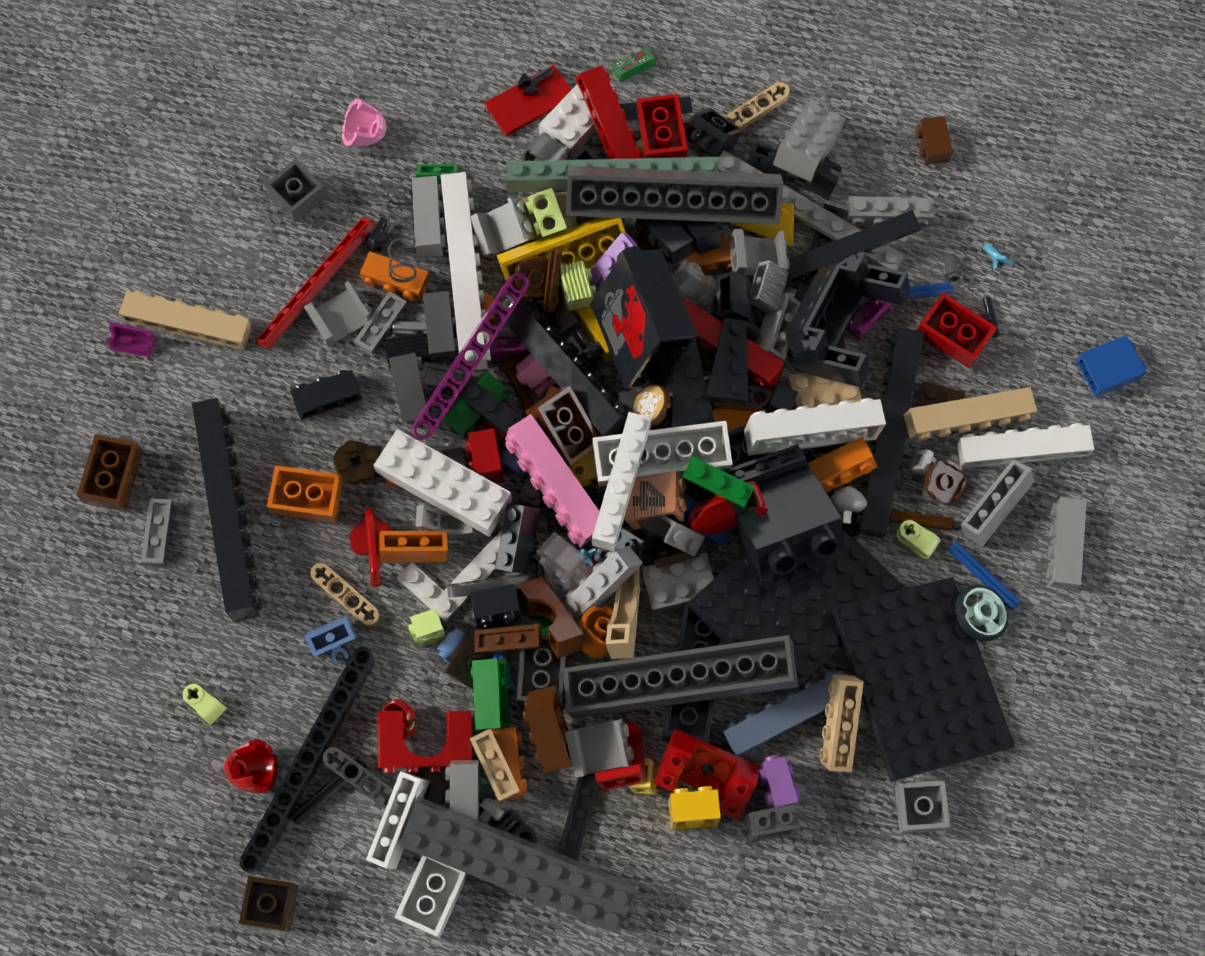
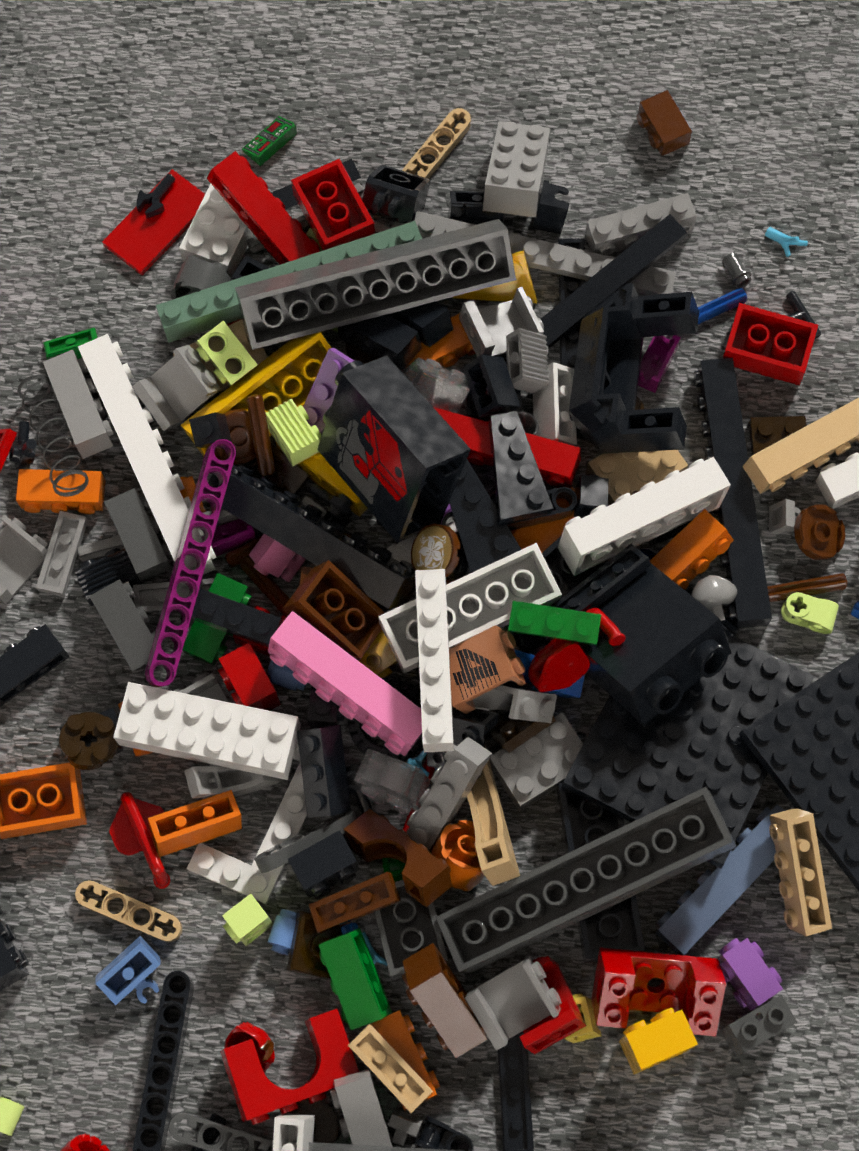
camera: 15 degrees left, 0 degrees up
(515, 263) = (209, 429): none -> black brick

